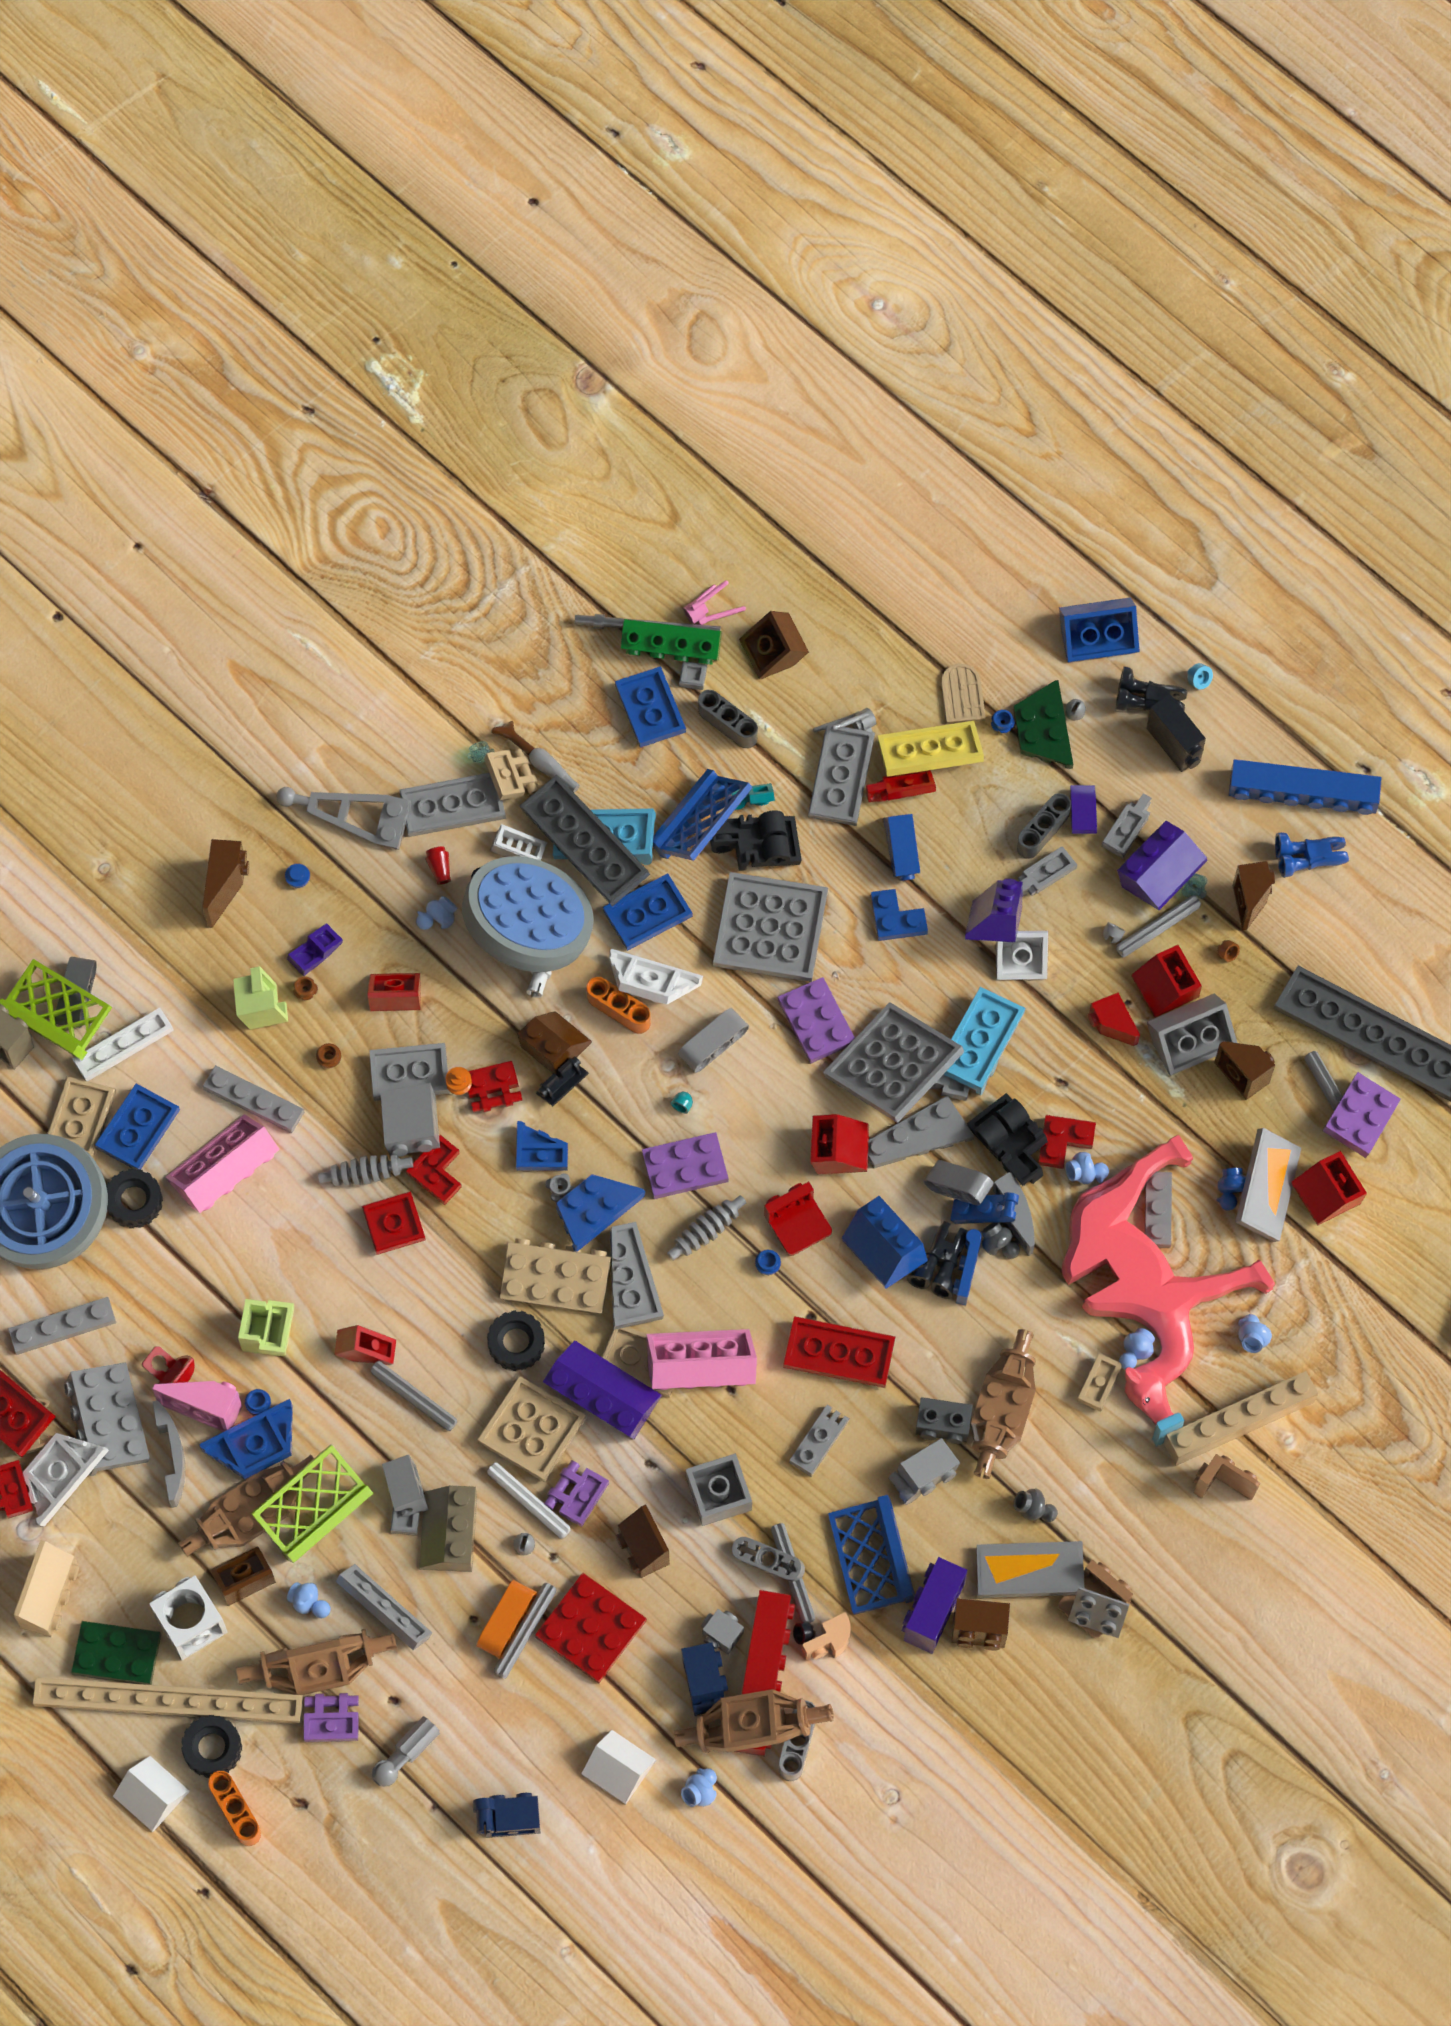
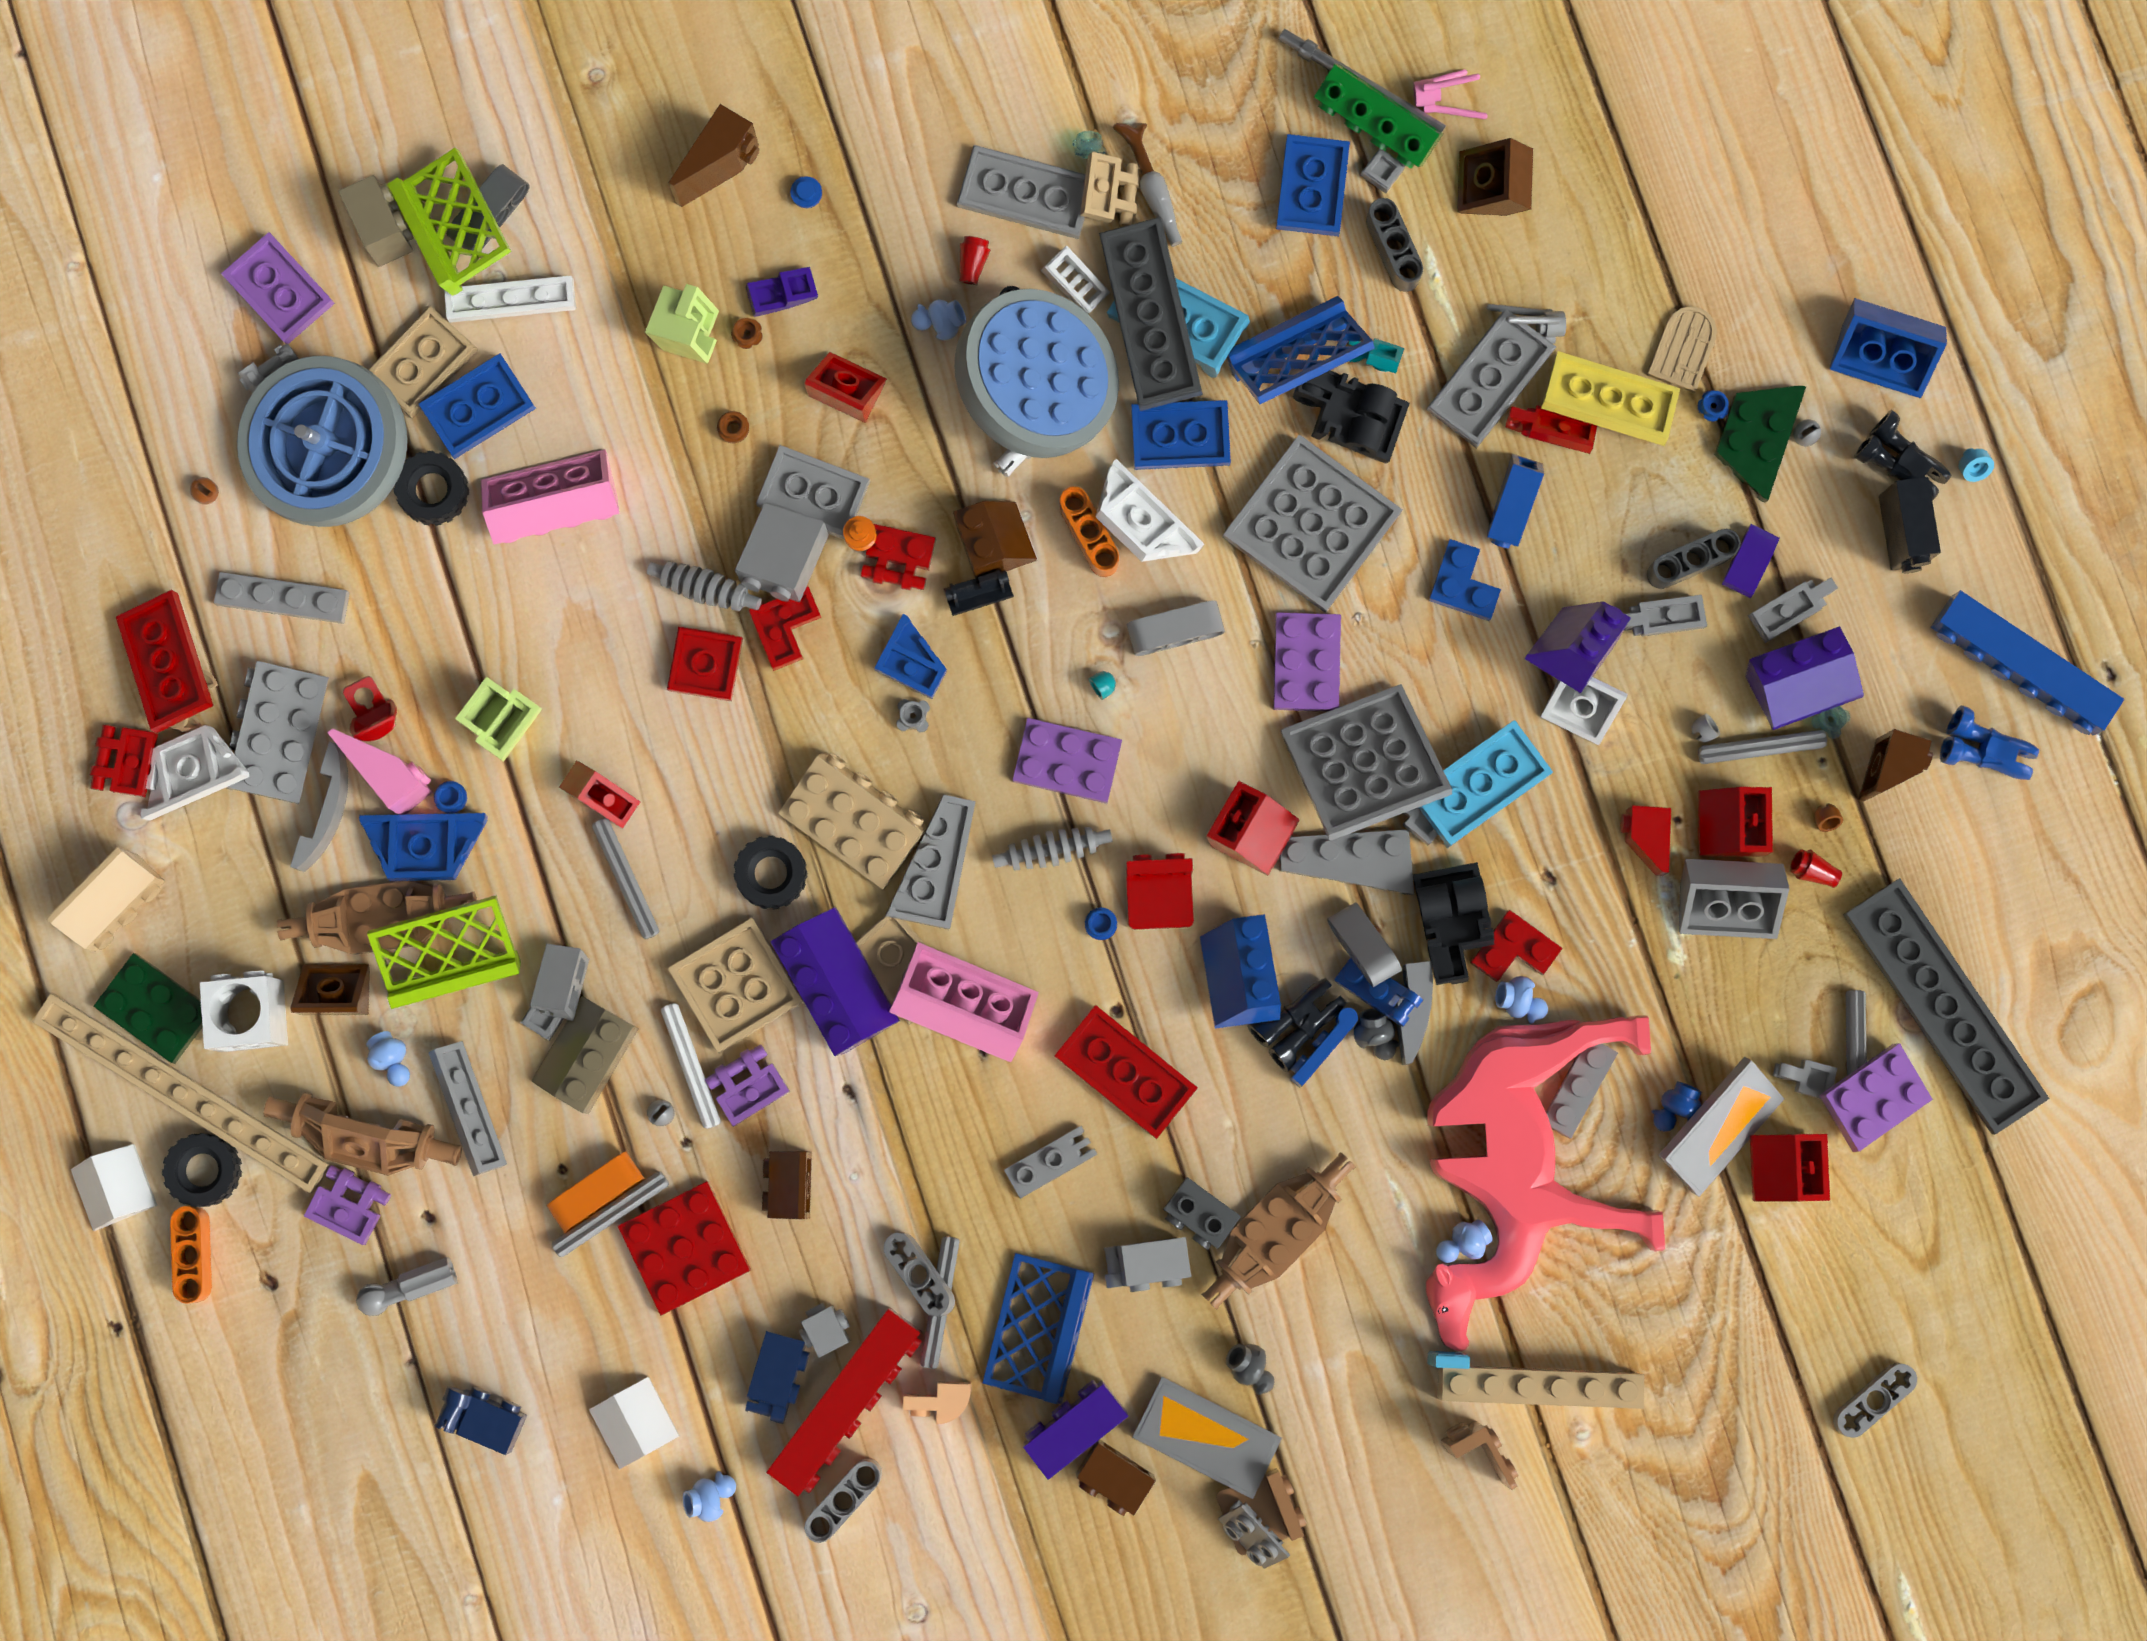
camera: 25 degrees right, 15 degrees up
(253, 1099) = (624, 436): light grey plate -> none
(391, 821) = (945, 178): light grey plate -> none
(595, 1207) = (937, 761): blue wing -> none
(719, 1489) = (904, 1166): light grey brick -> none
(752, 1722) = (799, 1463): medium nougat plate -> none
(803, 1632) = (915, 1378): black hinge -> none
(1099, 1382) = (1402, 1259): tan plate -> none
(1236, 987) = (1815, 869): none -> red cone
(1245, 1066) = (1771, 973): reddish brown slope -> none
(1253, 1334) = (1607, 1293): light blue animal -> none
(1310, 1124) = (1810, 1078): none -> light grey plate

